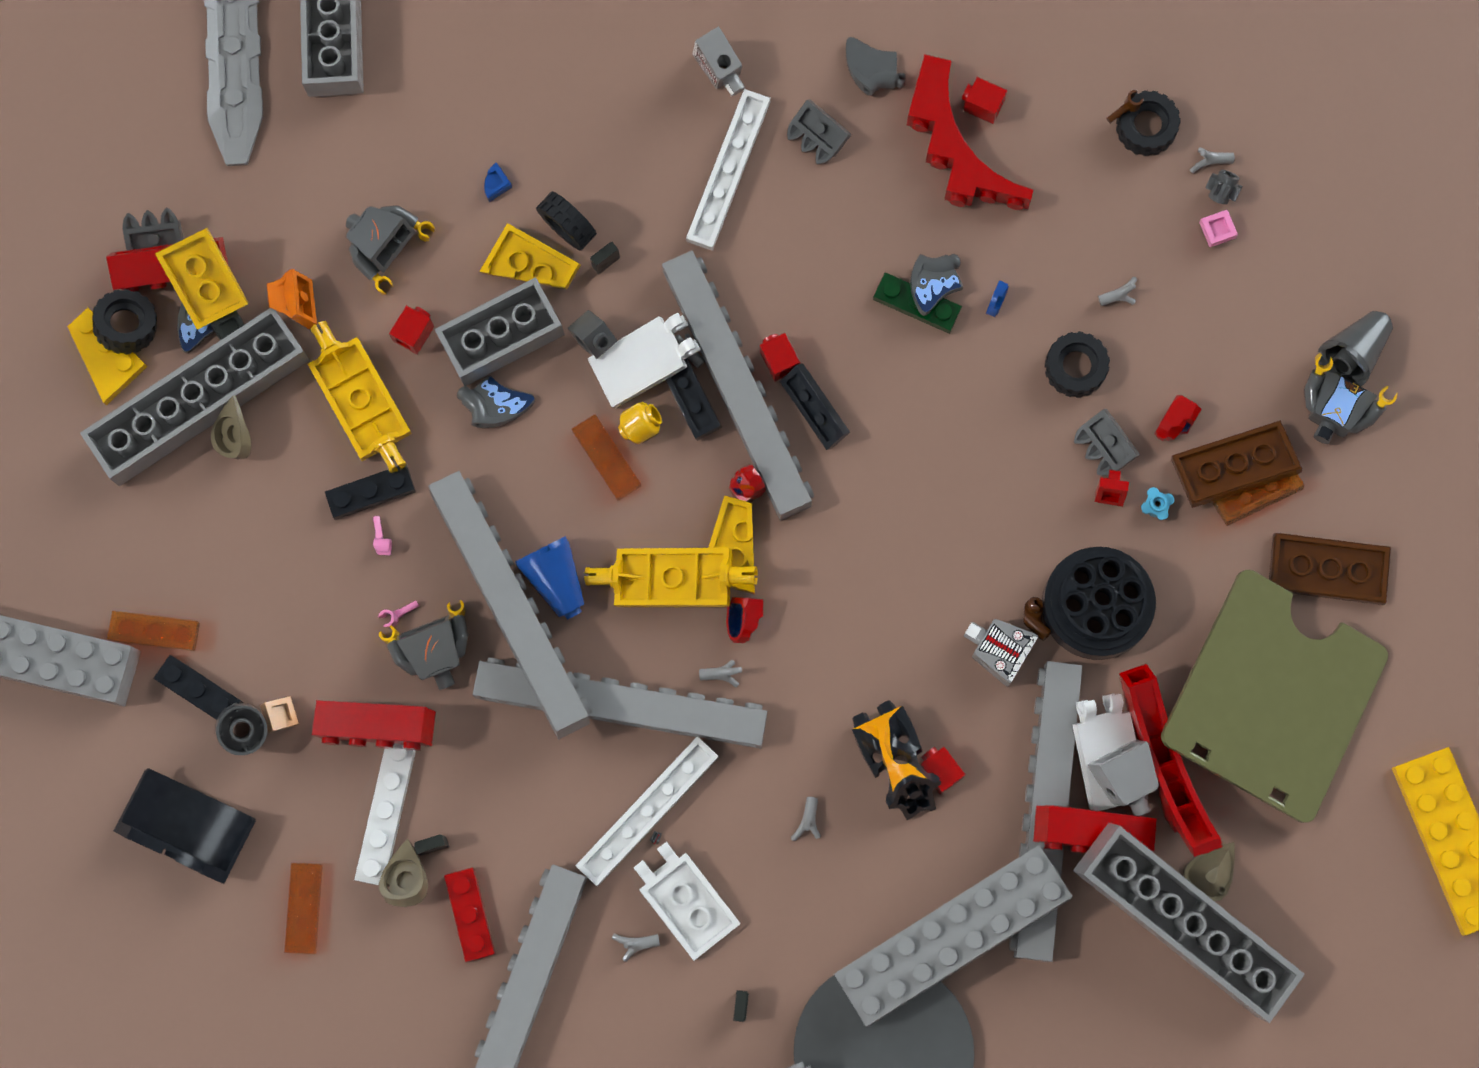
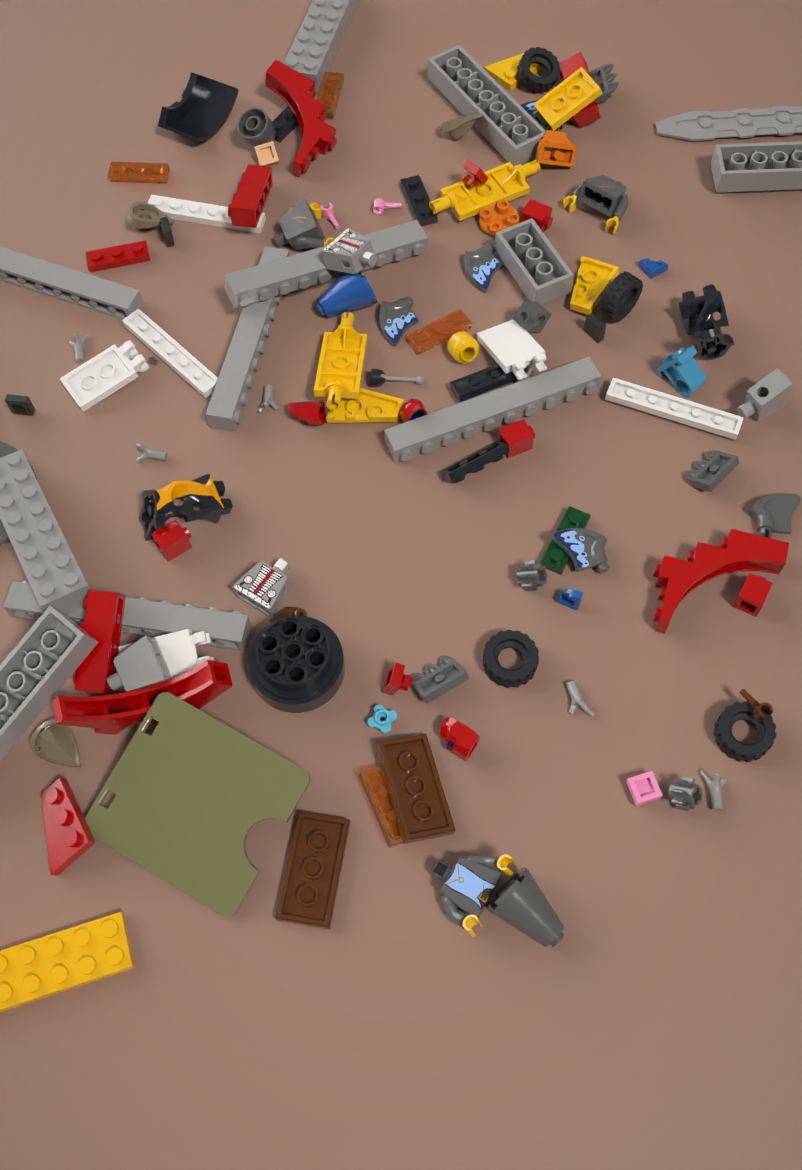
camera: 90 degrees right, 15 degrees down
(246, 645) = (299, 94): none -> red arch
(342, 407) = (474, 174): none -> red tile
(411, 379) = (498, 217): none -> orange dish
(516, 562) = (349, 253): none -> light grey torso
(583, 122) = (709, 343): none -> black hips
(585, 513) = (396, 319): none -> dark grey arm
(676, 155) = (683, 371): none -> dark azure pin
(685, 531) = (378, 378): none -> hinge
(974, 339) = (531, 575): none -> dark grey gear
(1308, 843) = (64, 827): none -> wing

